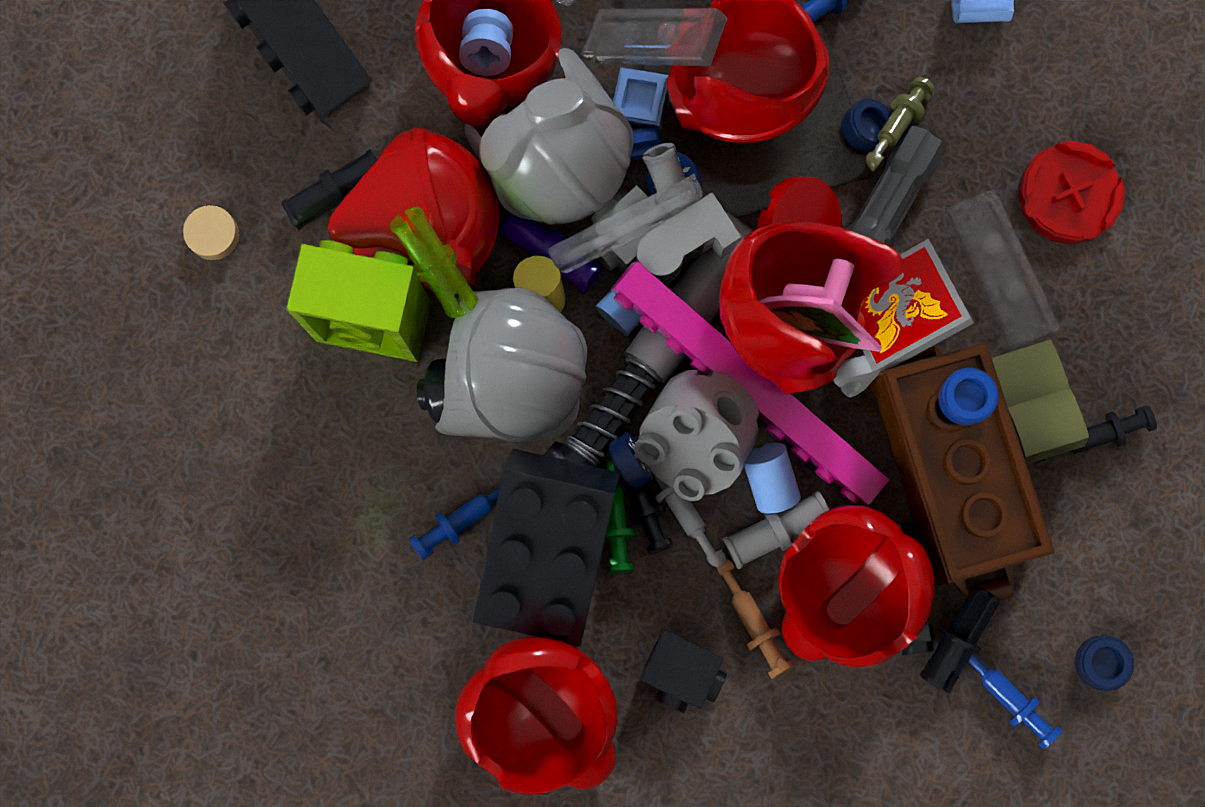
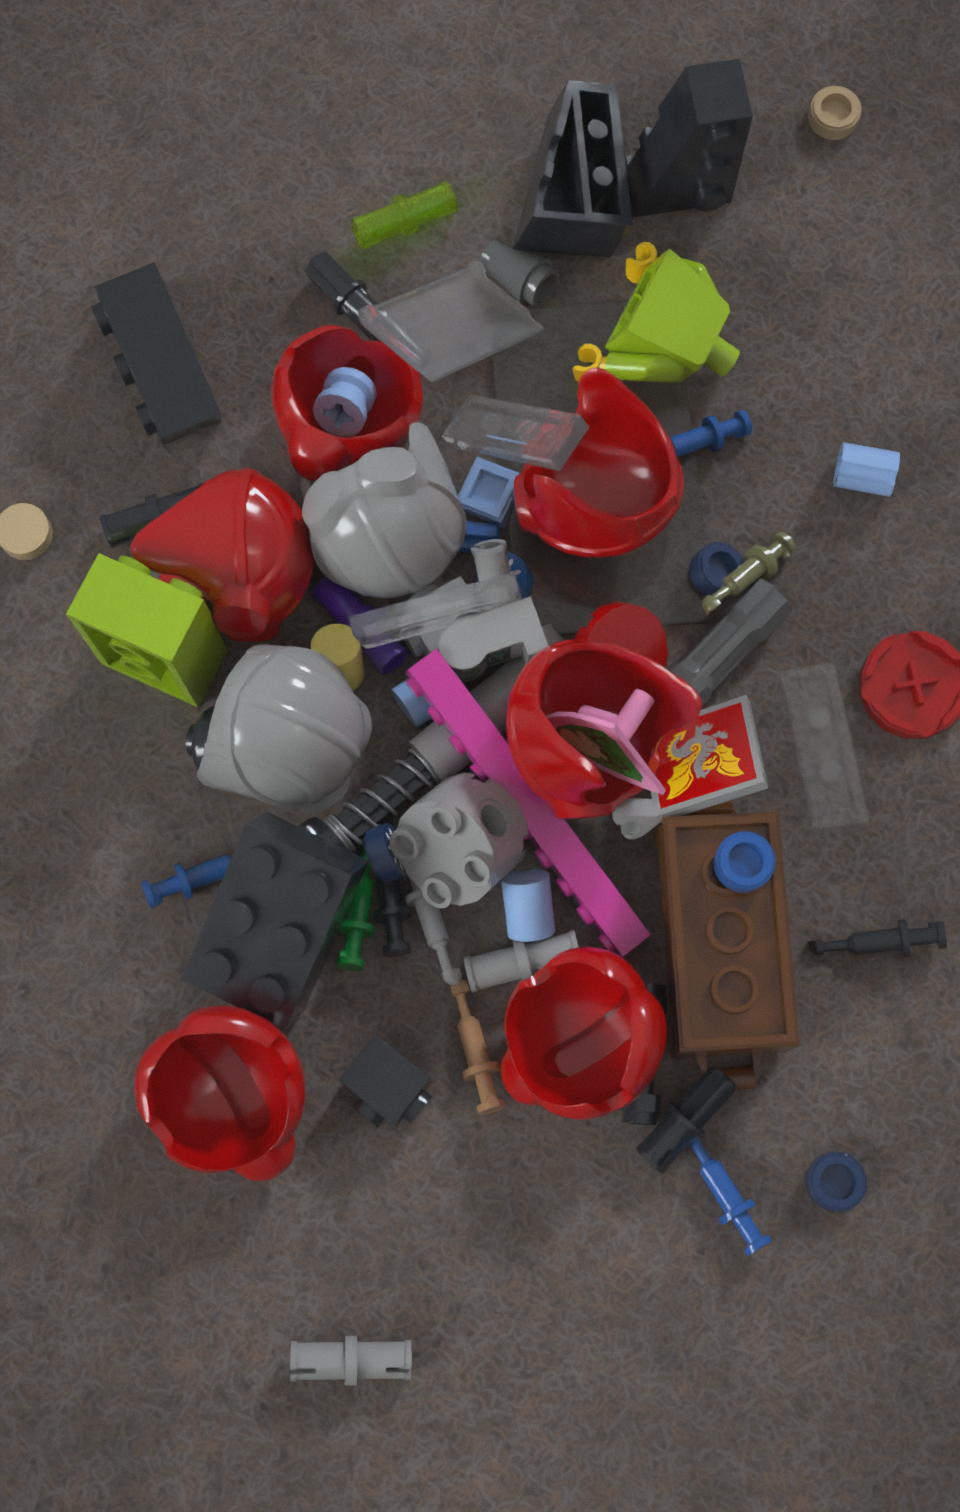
camera: 15 degrees right, 5 degrees down
(434, 262) = (227, 601): clear neon green pin -> none
(1040, 402) = (824, 890): olive brick -> none

